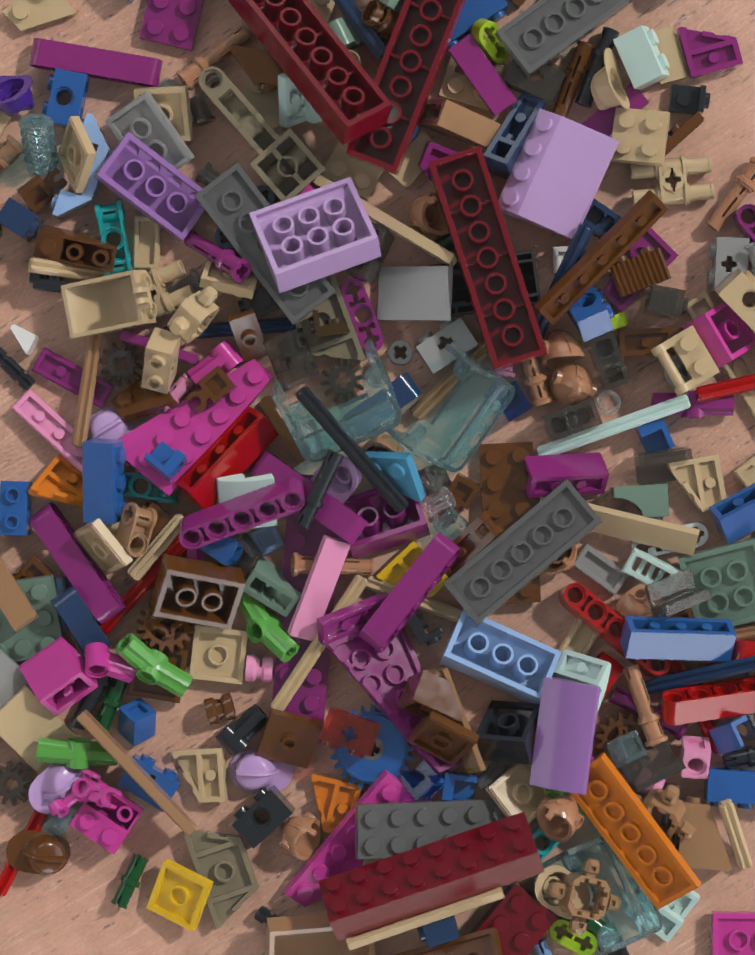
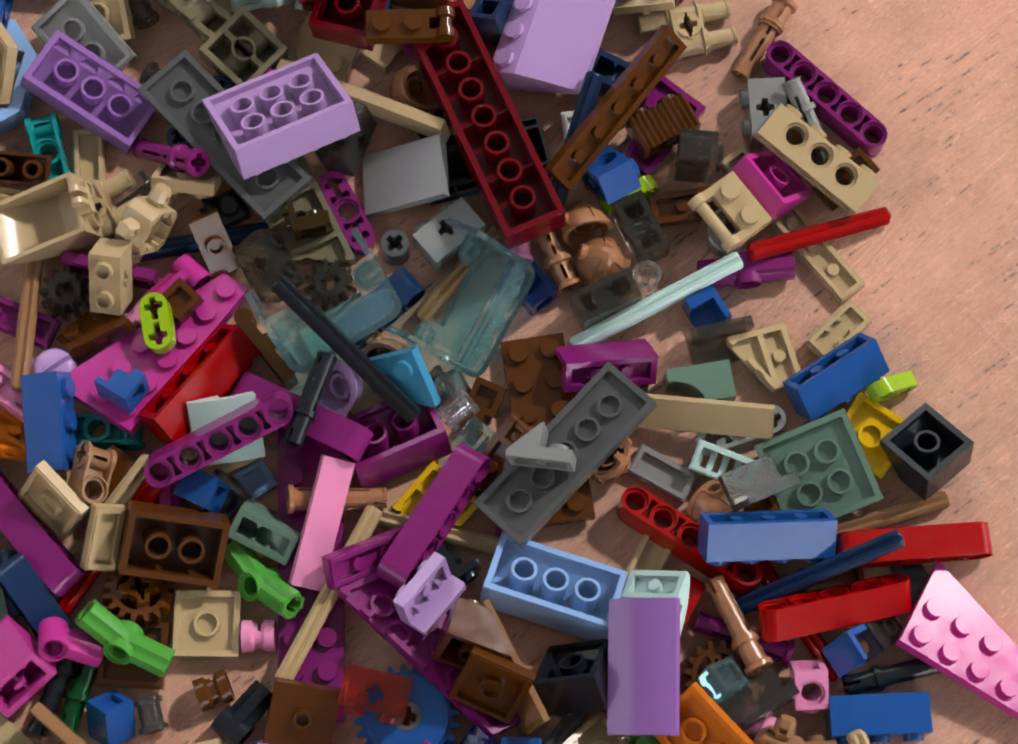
camera: 10 degrees left, 15 degrees down
(141, 581) = (103, 537): none -> tan tile
(168, 722) = (150, 715): none -> clear smoke bush
(190, 405) = (164, 322): none -> lime beam
(400, 657) = (428, 594): none -> lavender bracket
(432, 169) = (410, 26): none -> reddish brown plate
(496, 550) = (532, 452): none -> light grey slope

